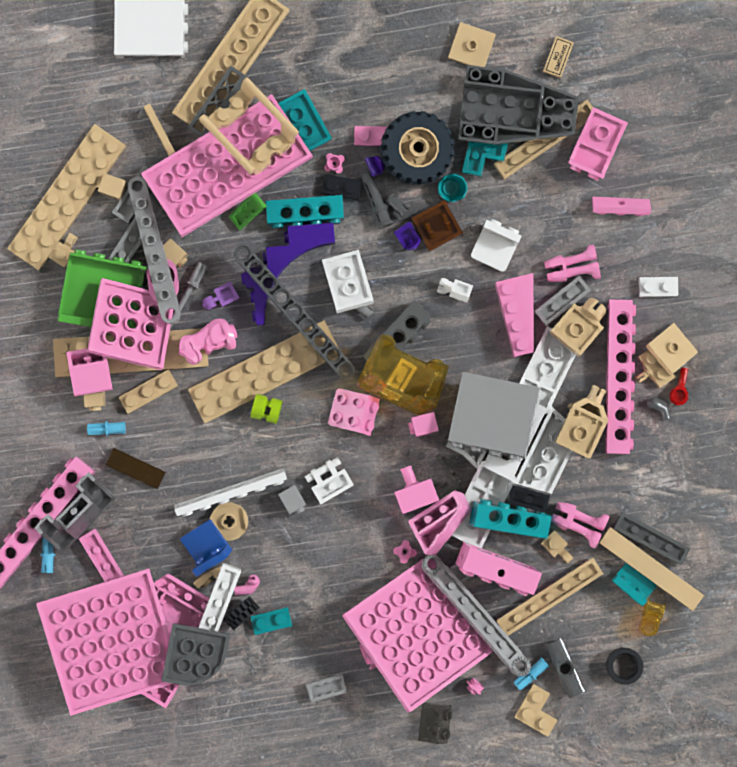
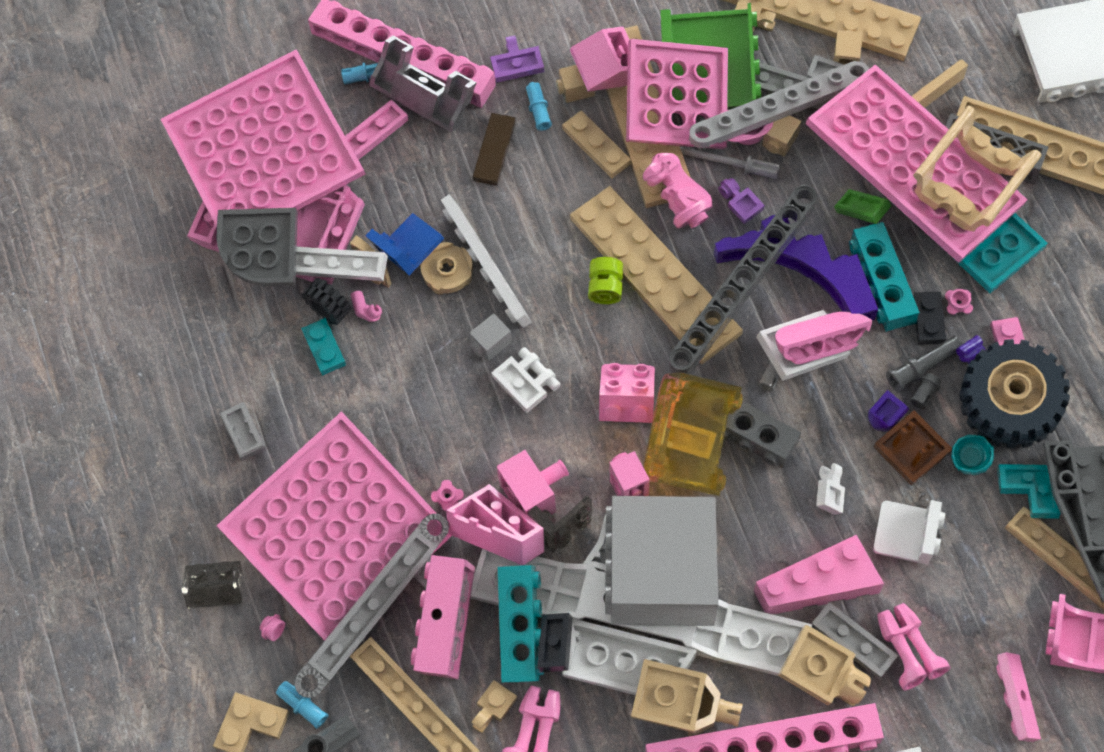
camera: 85 degrees right, 20 degrees down
(65, 436) = (516, 62): none -> medium lavender plate
(347, 268) = (821, 336): none -> bright pink brick

